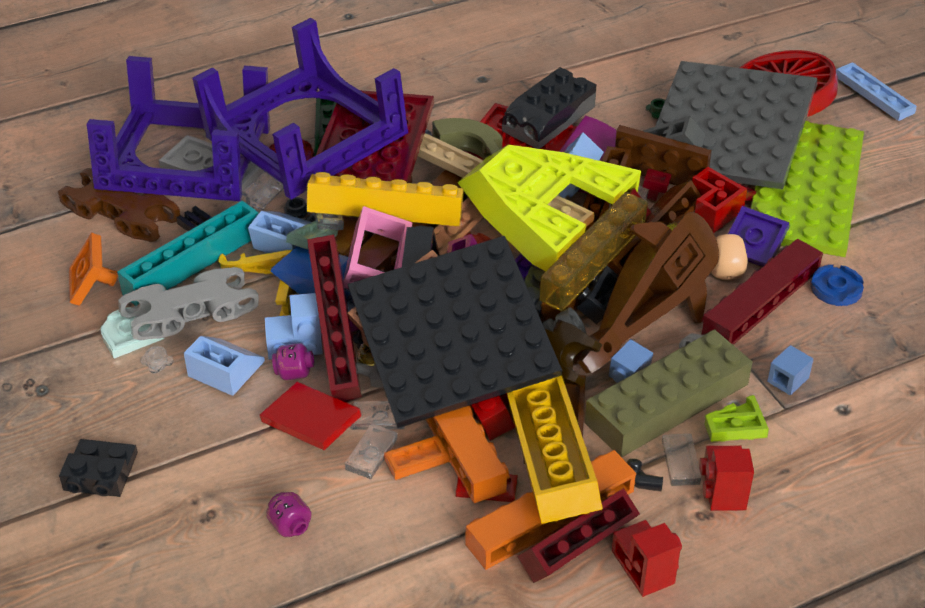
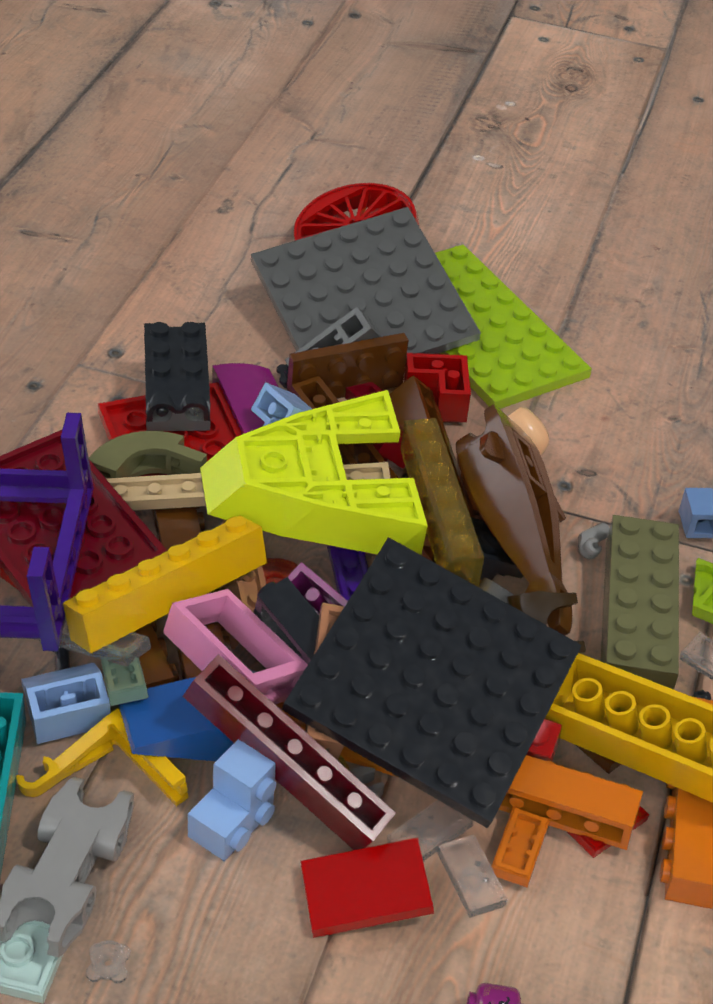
camera: 50 degrees left, 0 degrees up
(221, 363) = (201, 905): light blue slope -> none
(293, 361) = (272, 841): magenta head -> none
(296, 207) = (29, 661): black plate -> none
(629, 360) = (590, 598): medium blue brick -> none
(655, 107) = (261, 319): dark green plate -> none
(760, 234) = (517, 390): dark purple plate -> none
(763, 291) = (584, 454): dark red brick -> none
(837, 285) = (620, 408): blue tile -> none
(876, 91) = (438, 201): light blue plate -> none

